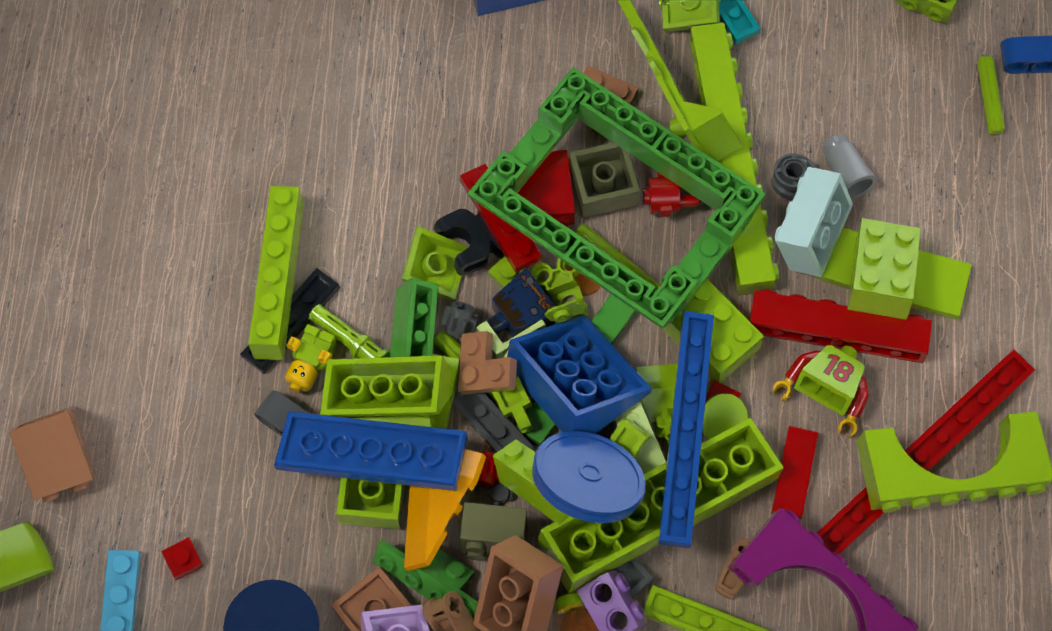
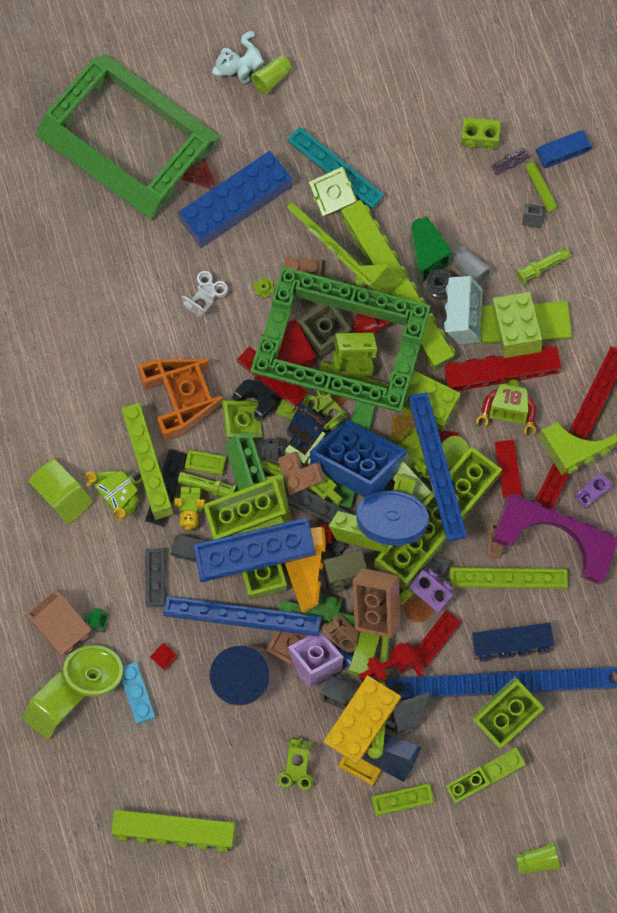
camera: 20 degrees left, 5 degrees up
(72, 527) = (93, 662): none -> lime dish
(110, 469) = (97, 619): none -> green tile
(139, 271) = (60, 490): none -> lime piece
(217, 298) = (116, 490): none -> lime torso
(219, 441) = (155, 578): none -> dark grey tile
(319, 543) = (242, 616): none -> blue tile
(360, 305) = (205, 462): none -> lime tile
(370, 196) = (185, 392): none -> orange wedge
(460, 75) = (207, 292): none -> white piece
(536, 92) = (264, 292): none -> lime plant
(629, 225) = (354, 354): none -> lime piece
(658, 357) = (400, 428): none -> clear yellow tile
(796, 120) = (428, 249): none -> green slope
(911, 551) = (593, 490): none -> medium lavender leg
(940, 202) = (535, 269): none -> lime pin
(958, 45) = (509, 161): none -> clear purple pin
(963, 130) = (532, 215): none -> dark grey slope

